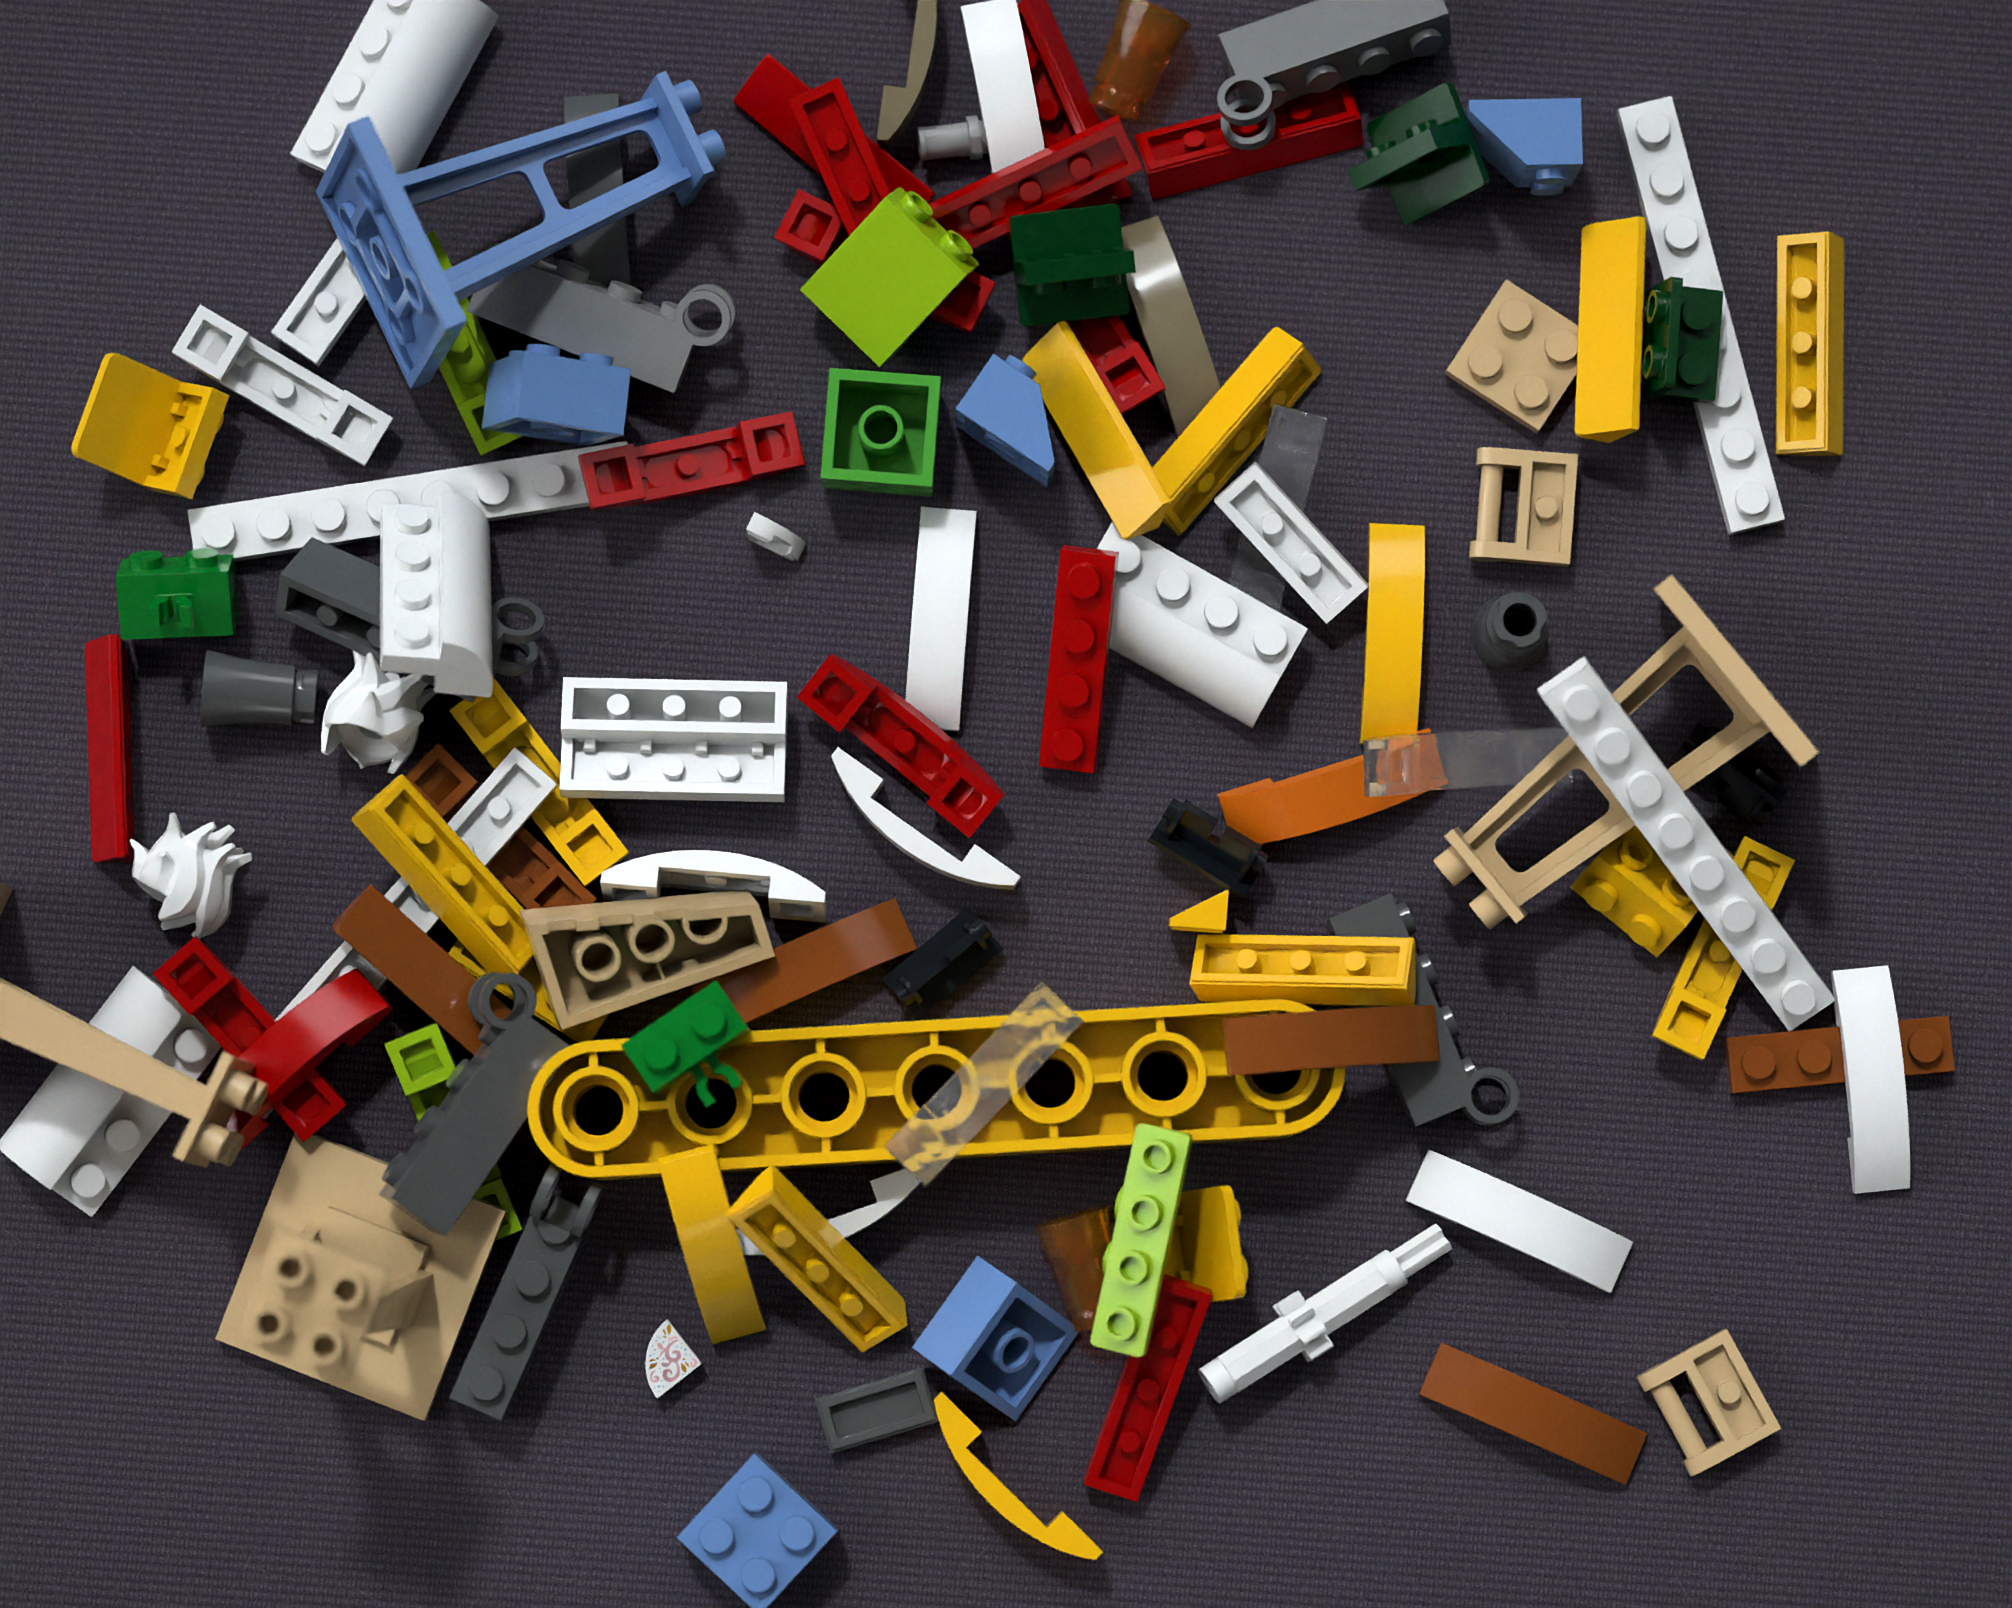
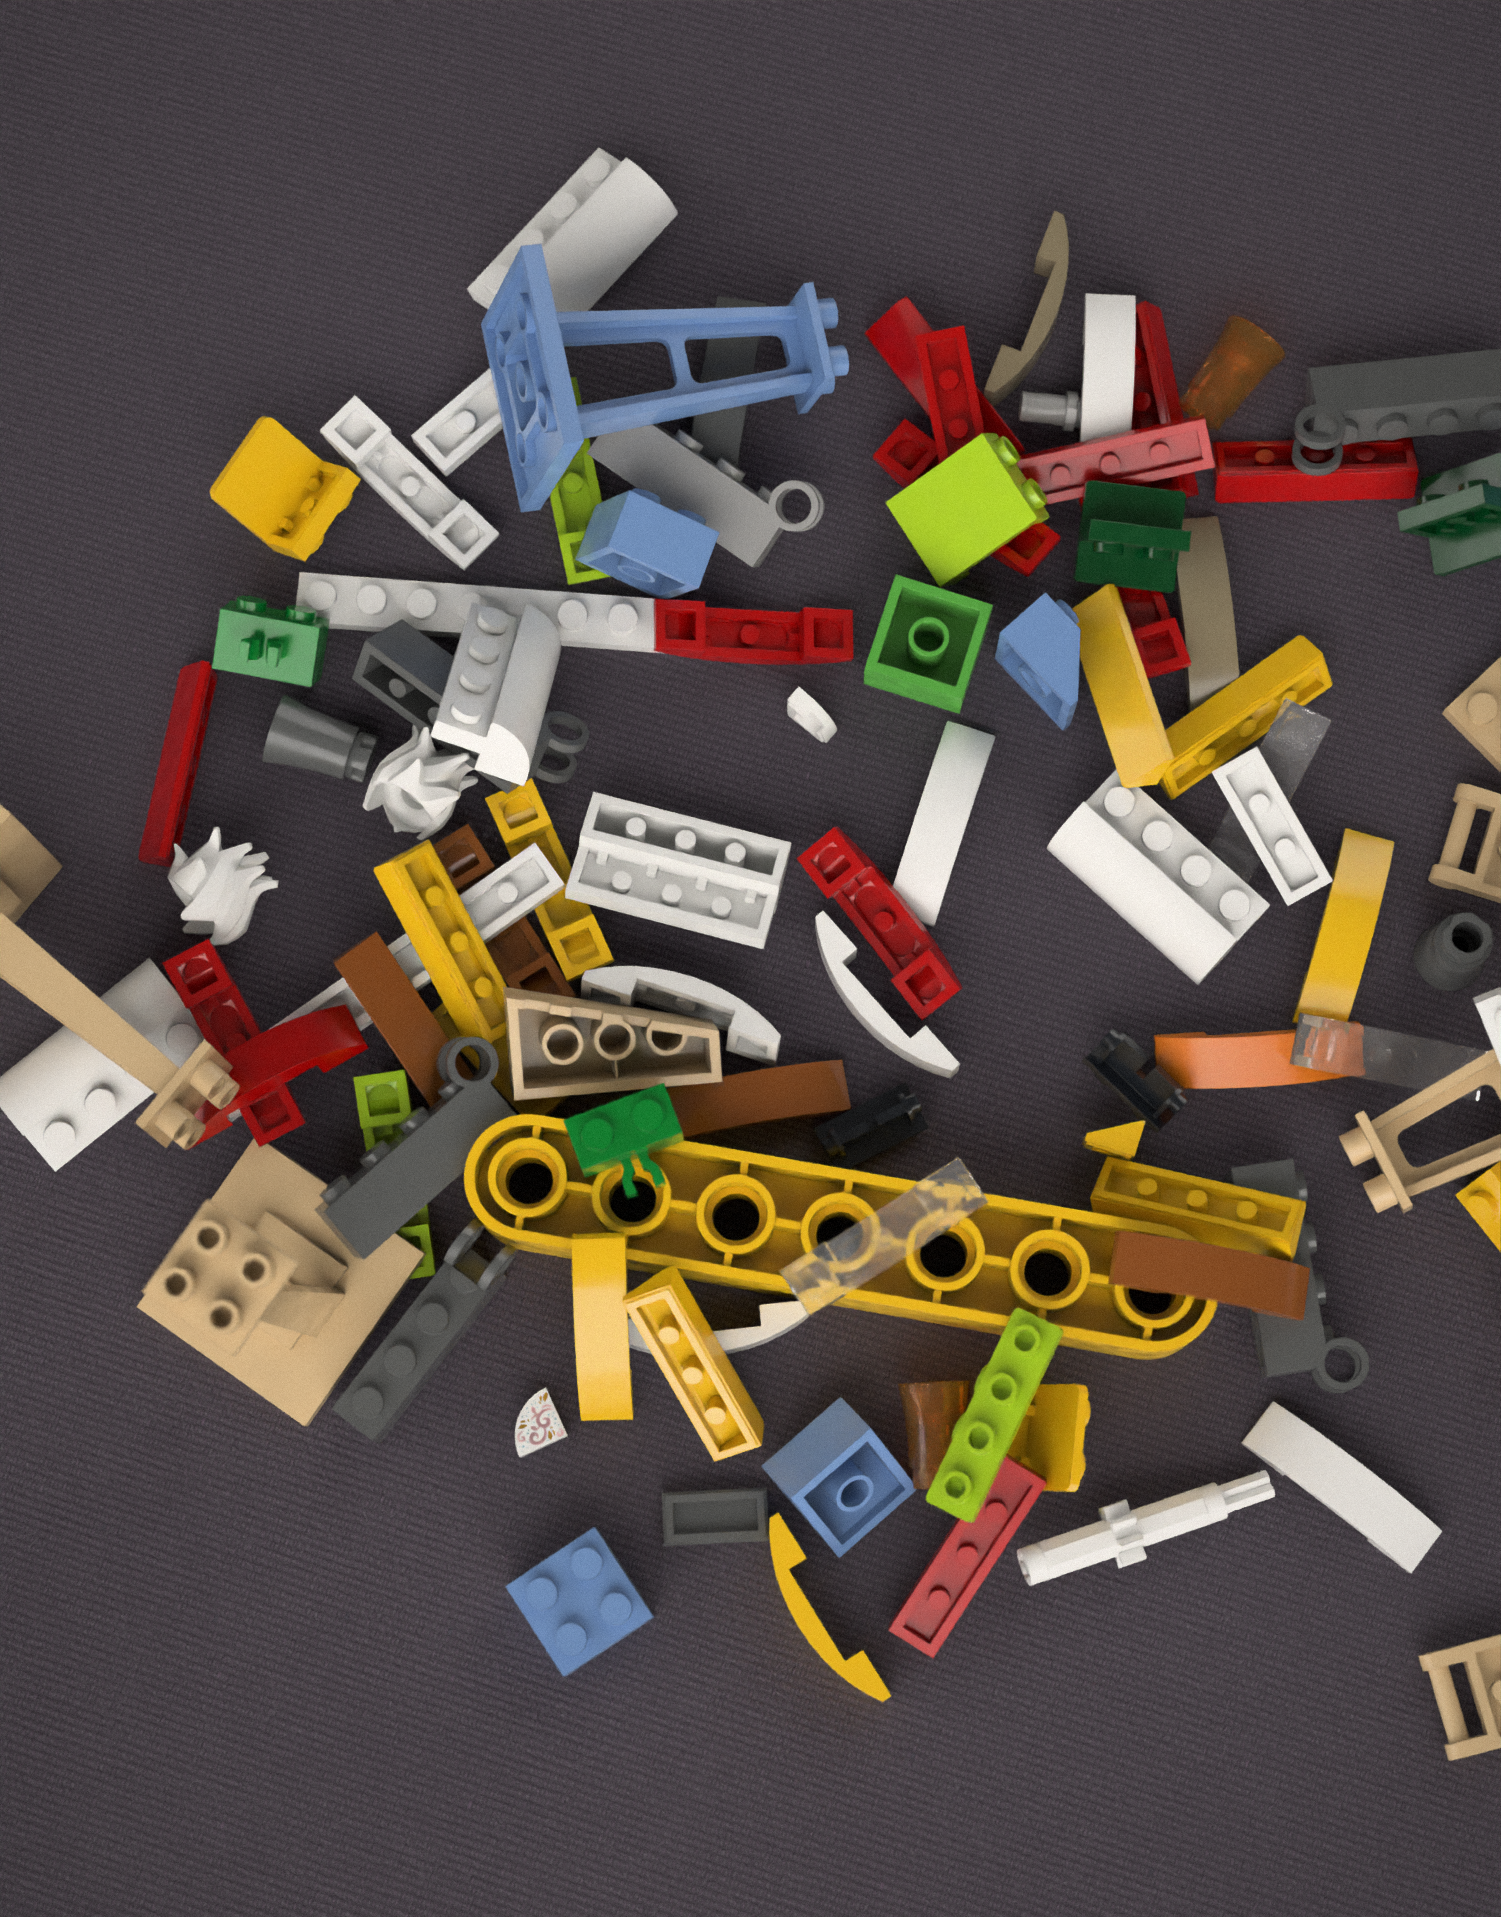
camera: 20 degrees right, 5 degrees down
(1078, 659) = (1057, 883): red plate -> none
(1533, 1413) = (1316, 1666): dark orange slope -> none

